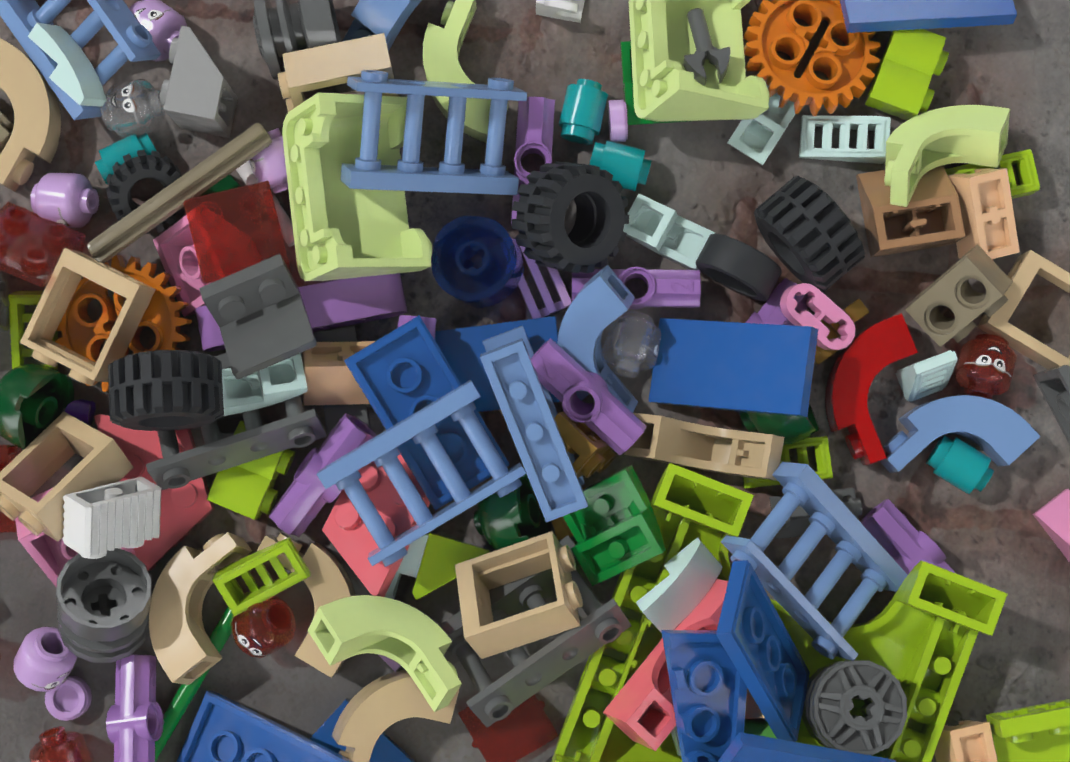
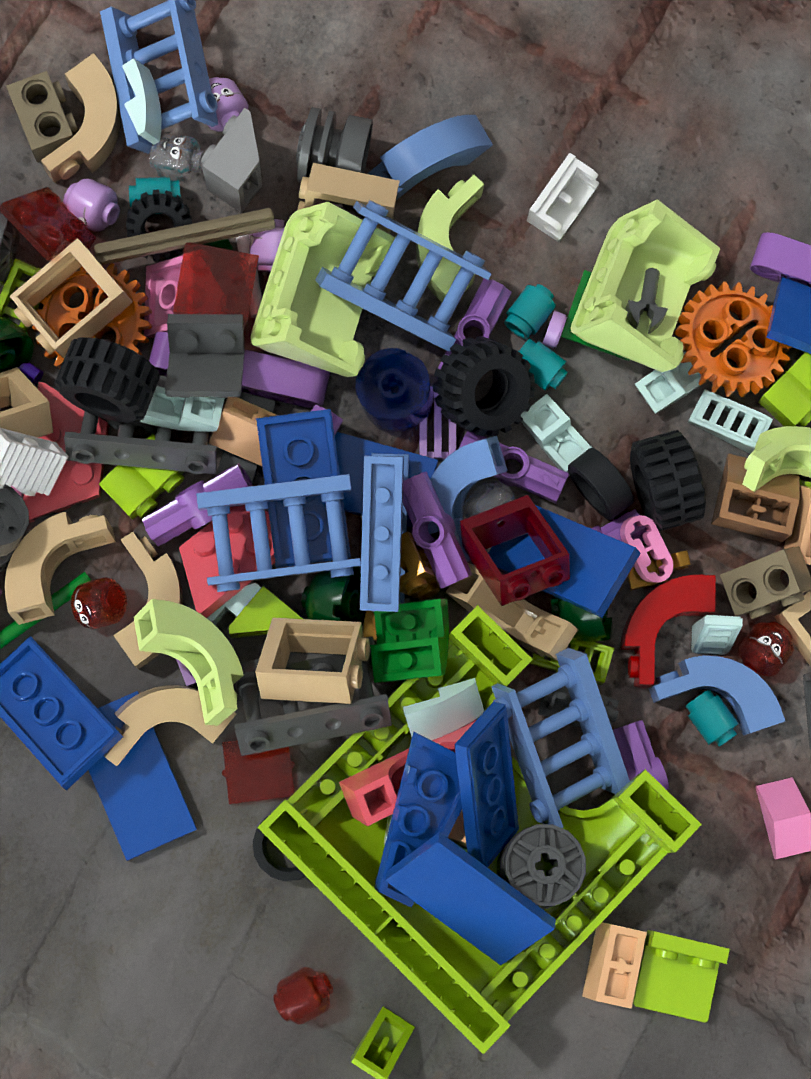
camera: 15 degrees right, 5 degrees down
(233, 593) = (86, 560): lime slope -> none
(656, 356) = (517, 519): none -> dark red window

